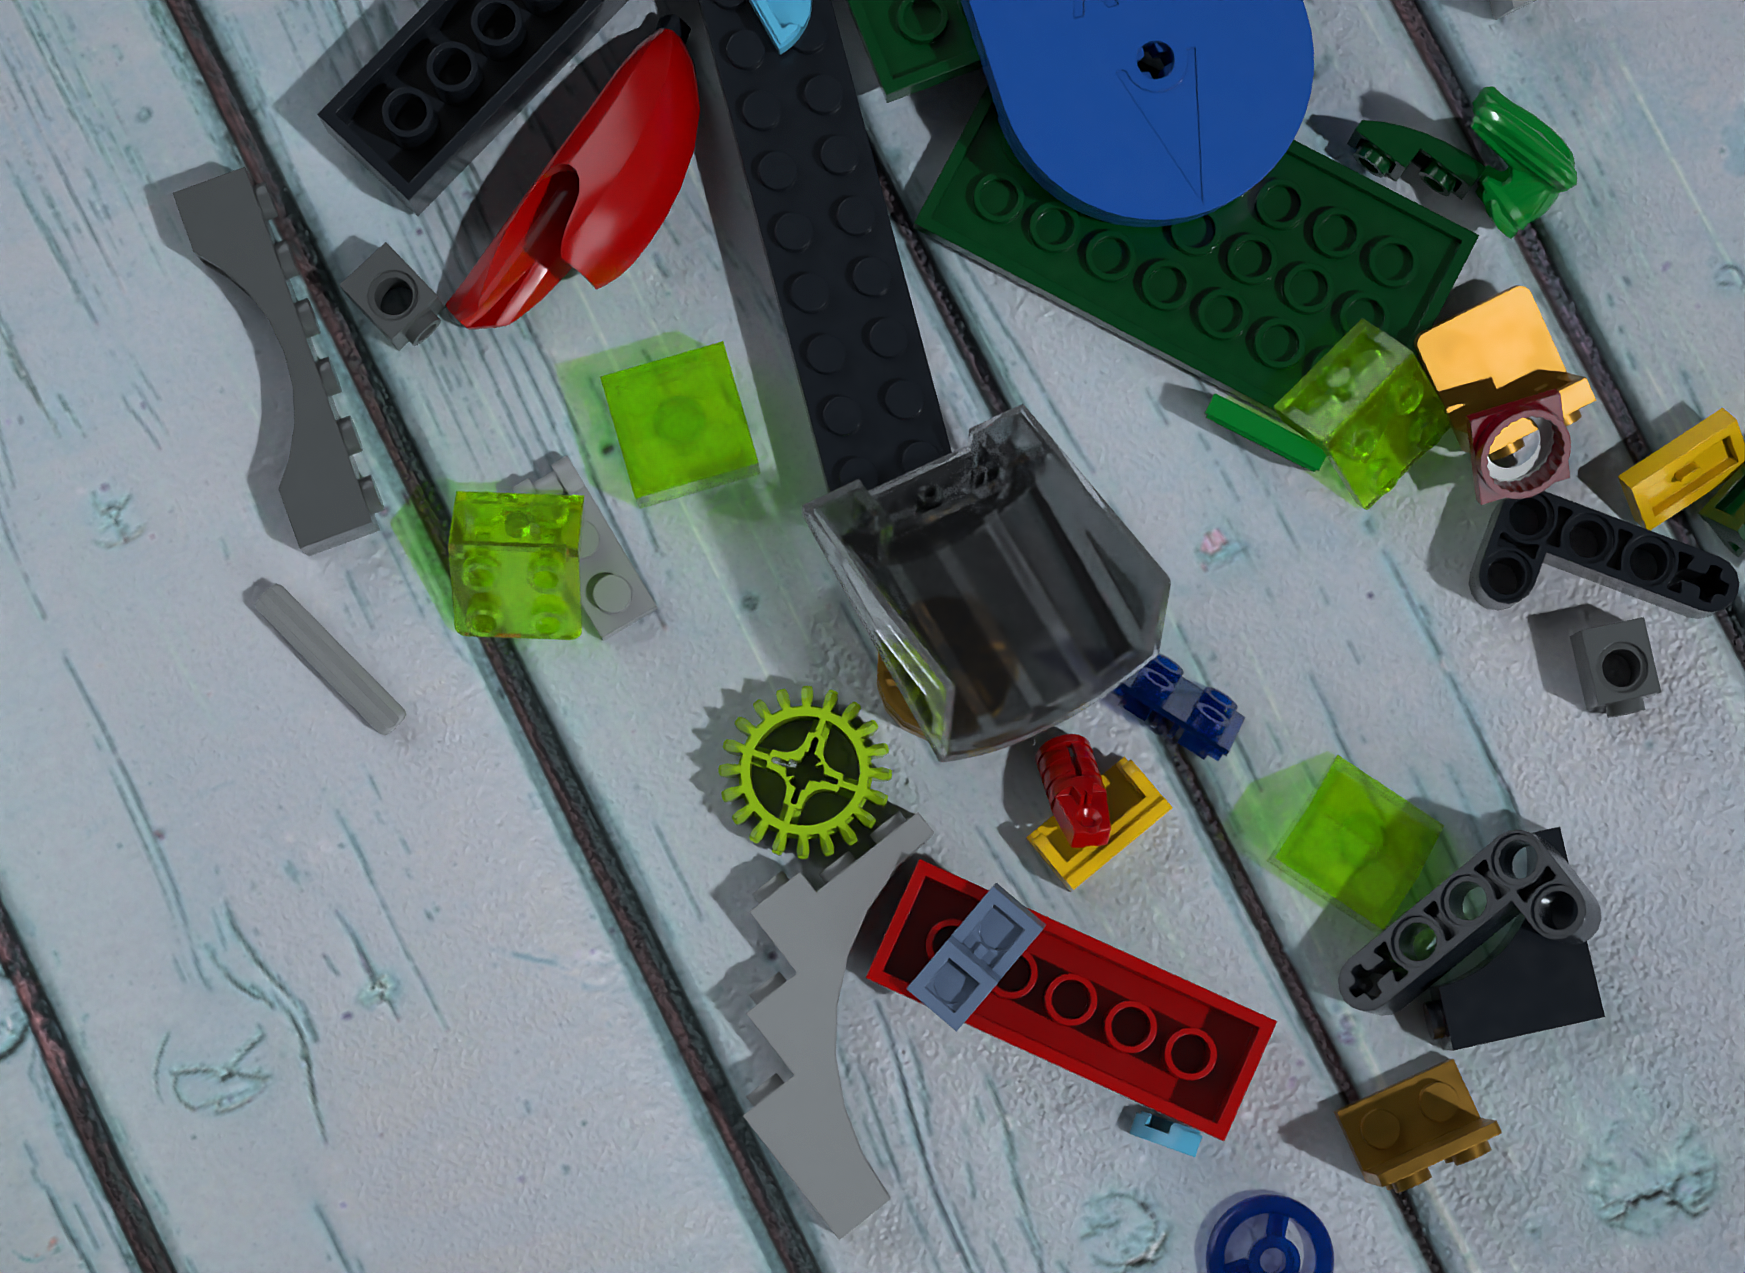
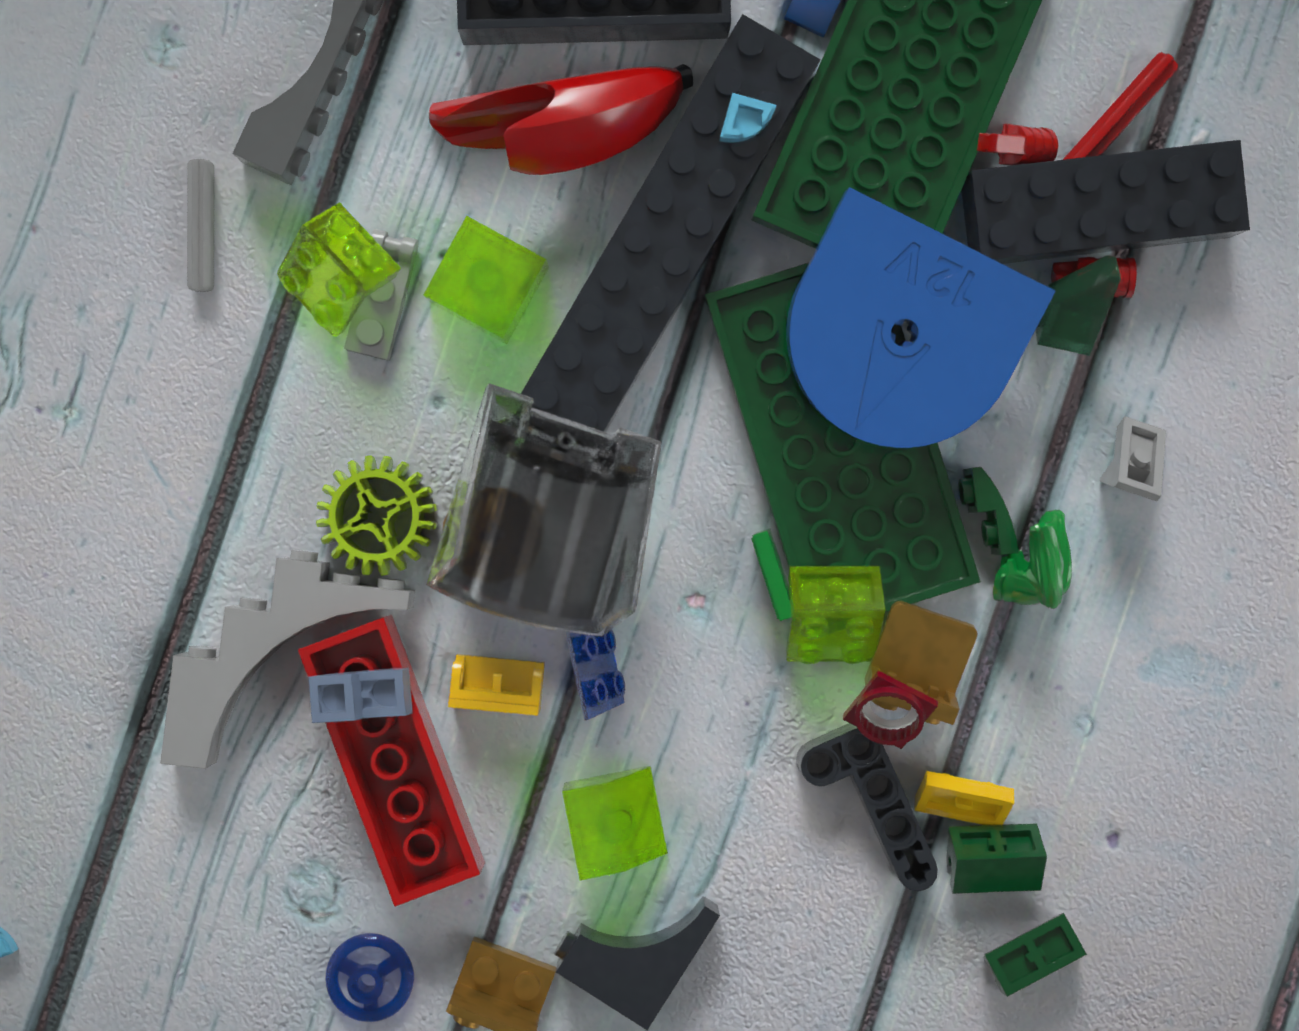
camera: 45 degrees right, 5 degrees up
(379, 275) = (404, 55): dark grey brick -> none
(1075, 790) = (499, 658): red hinge -> none
(1166, 1133) = (373, 872): medium azure tile -> none
(1456, 934) = (616, 918): black beam -> none
(1632, 643) = (828, 842): dark grey brick -> none

